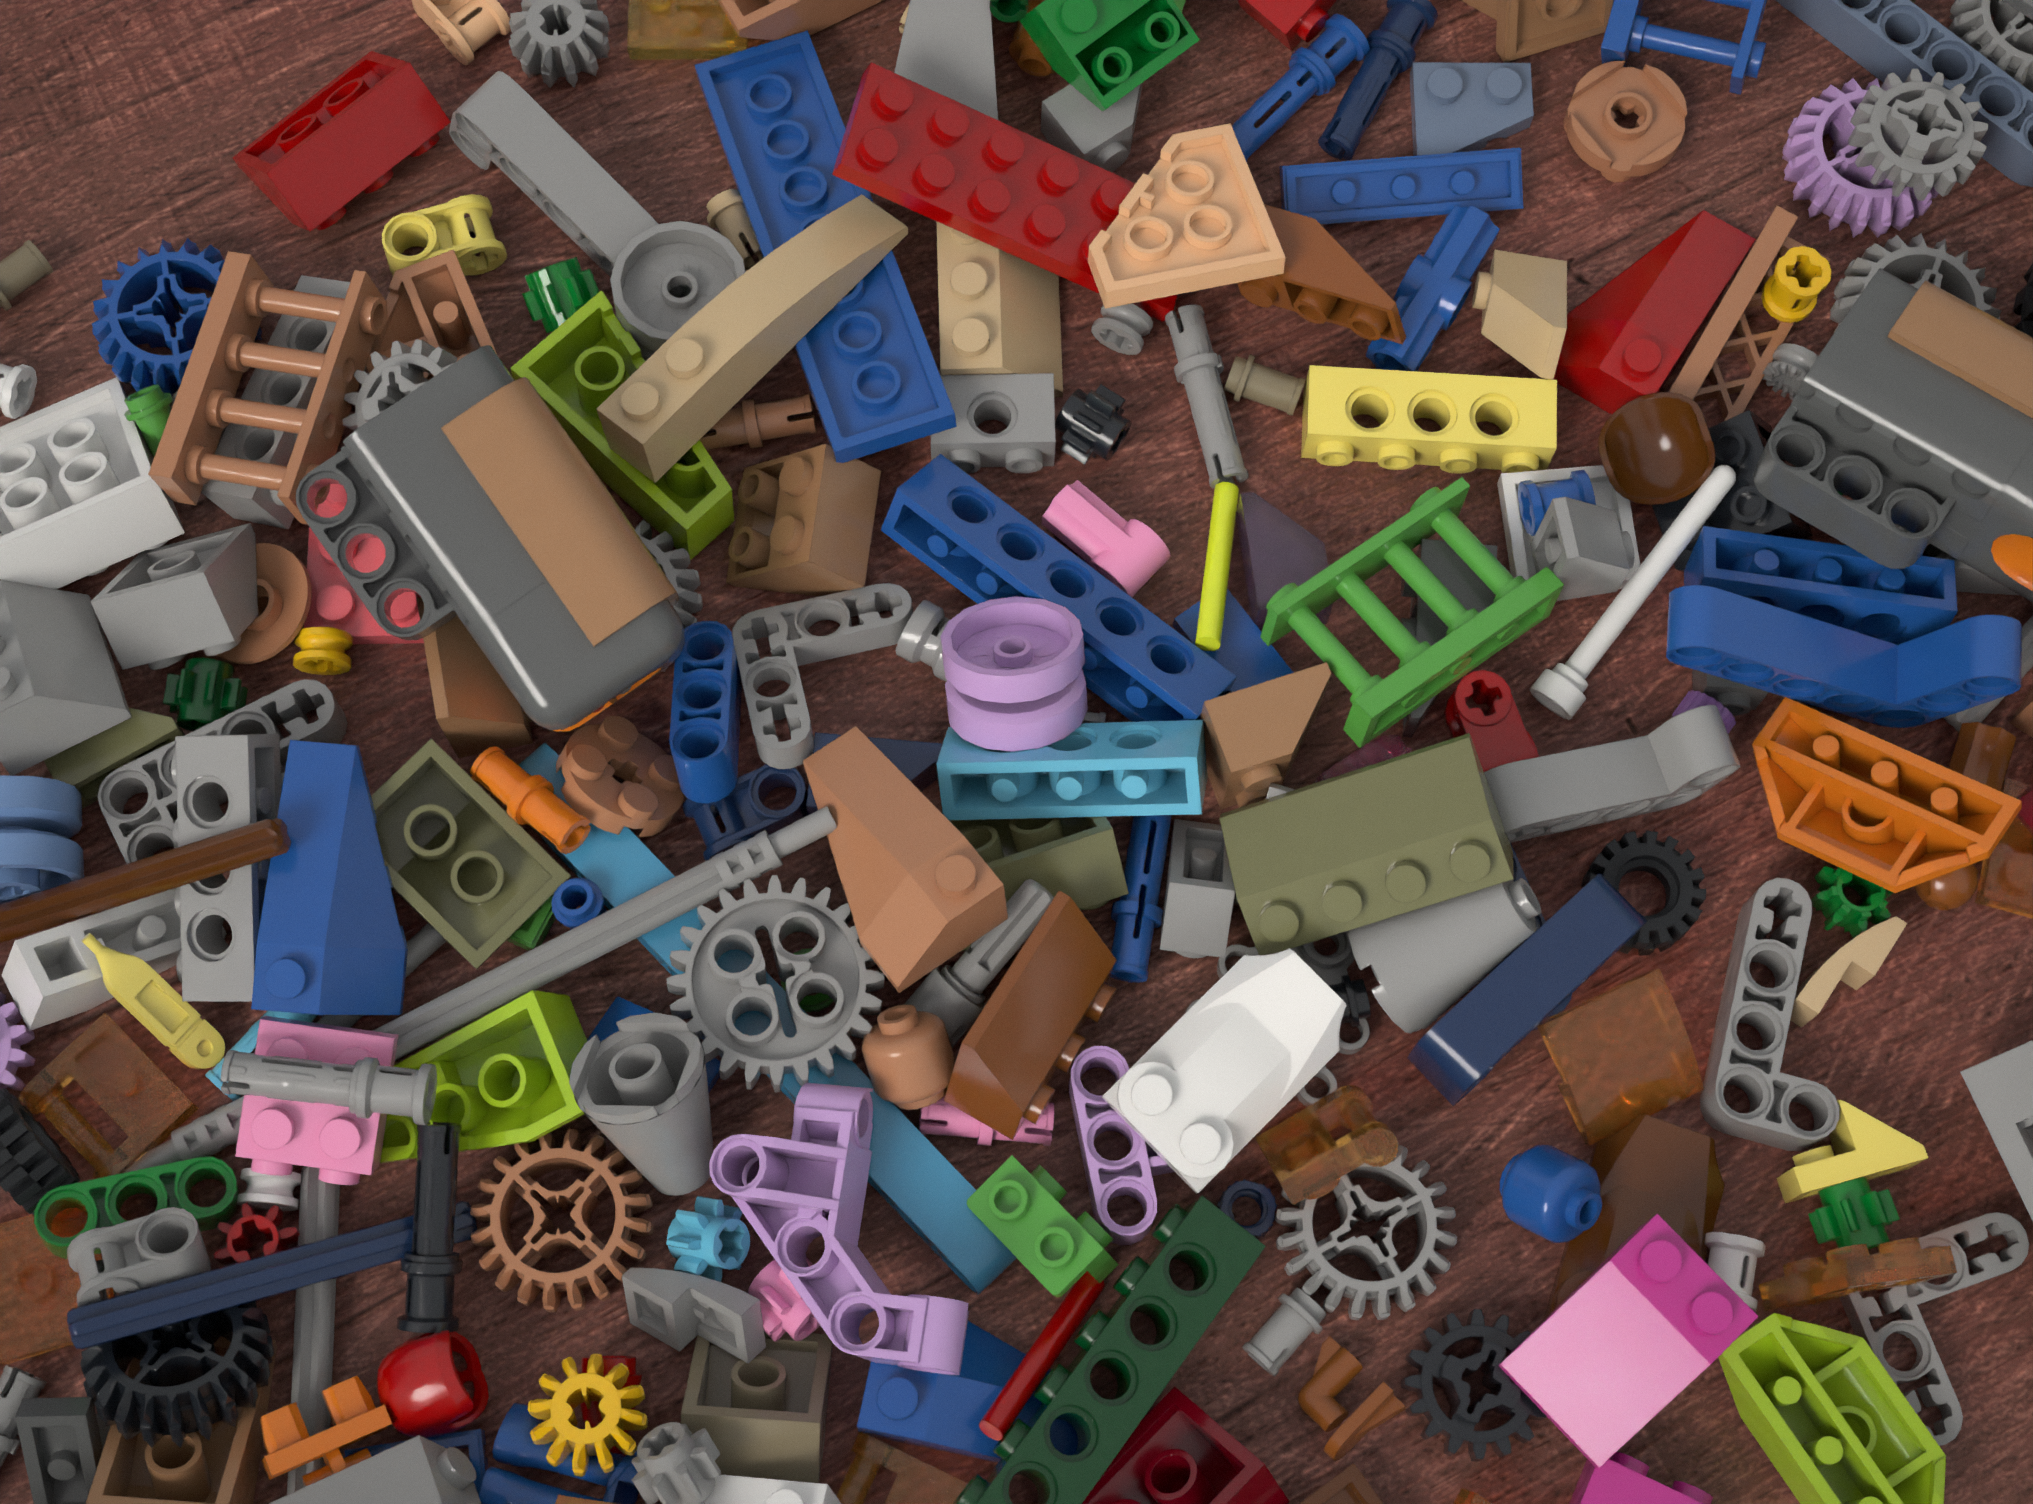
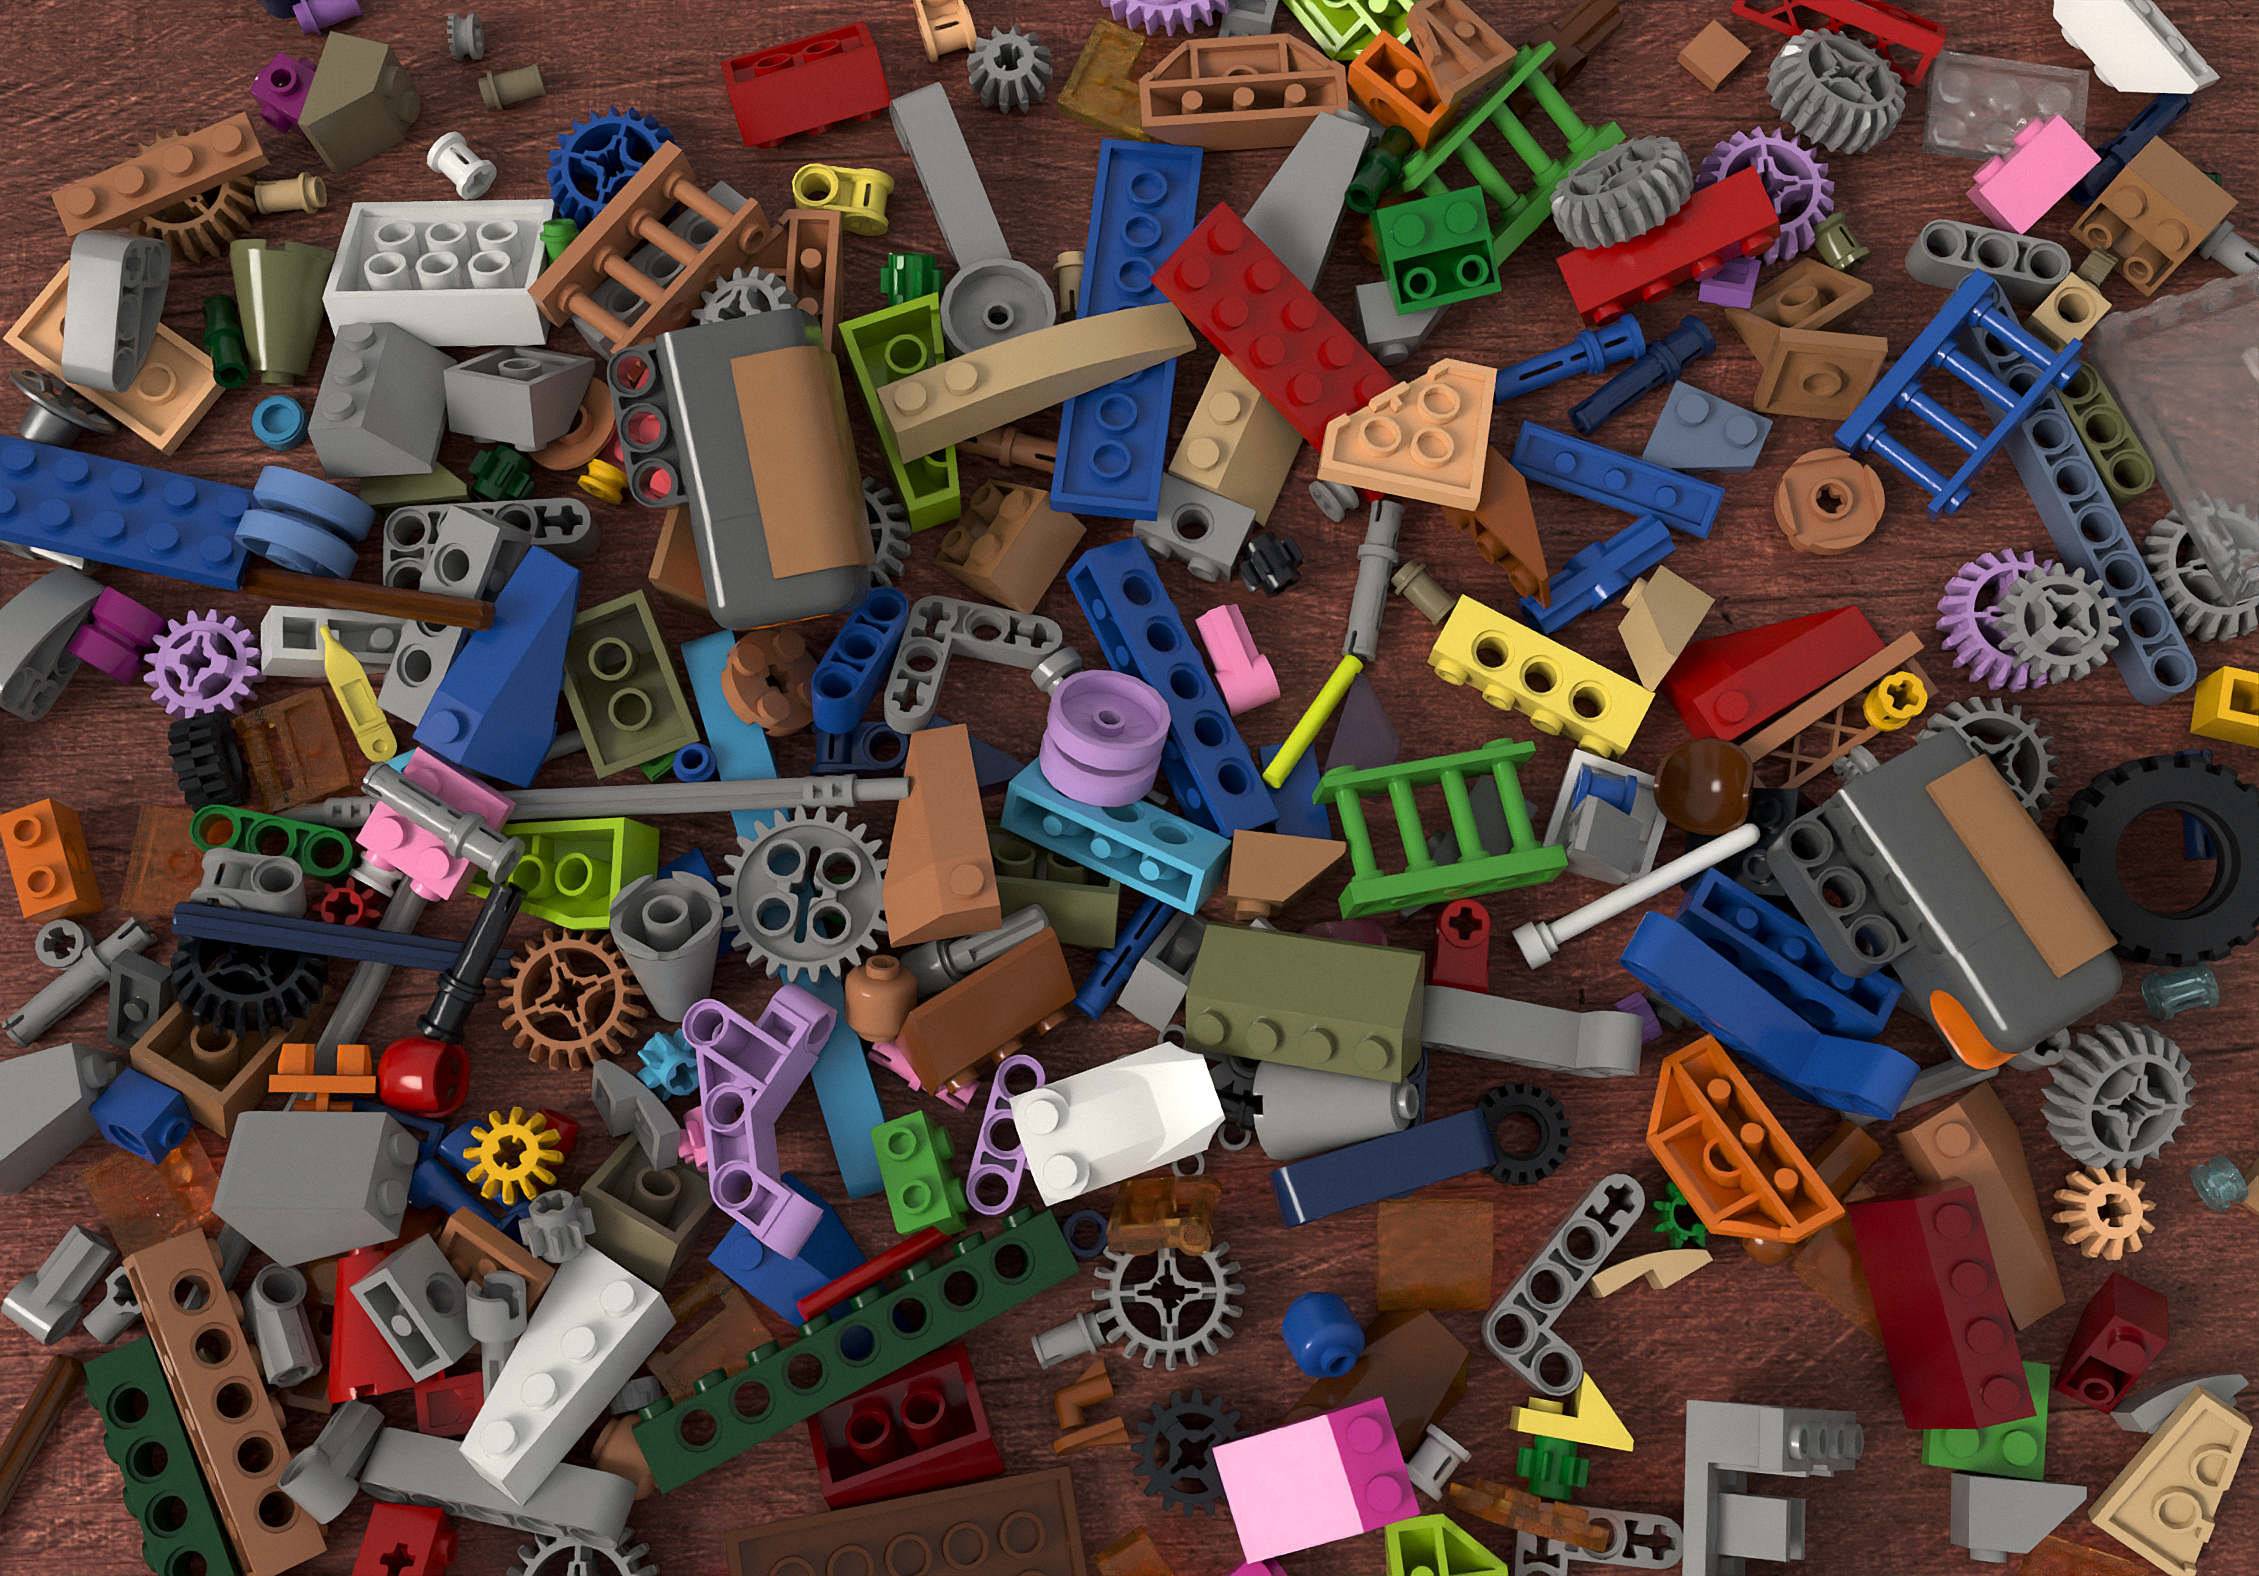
camera: 30 degrees right, 5 degrees up
(530, 799) = (694, 669): orange pin -> none

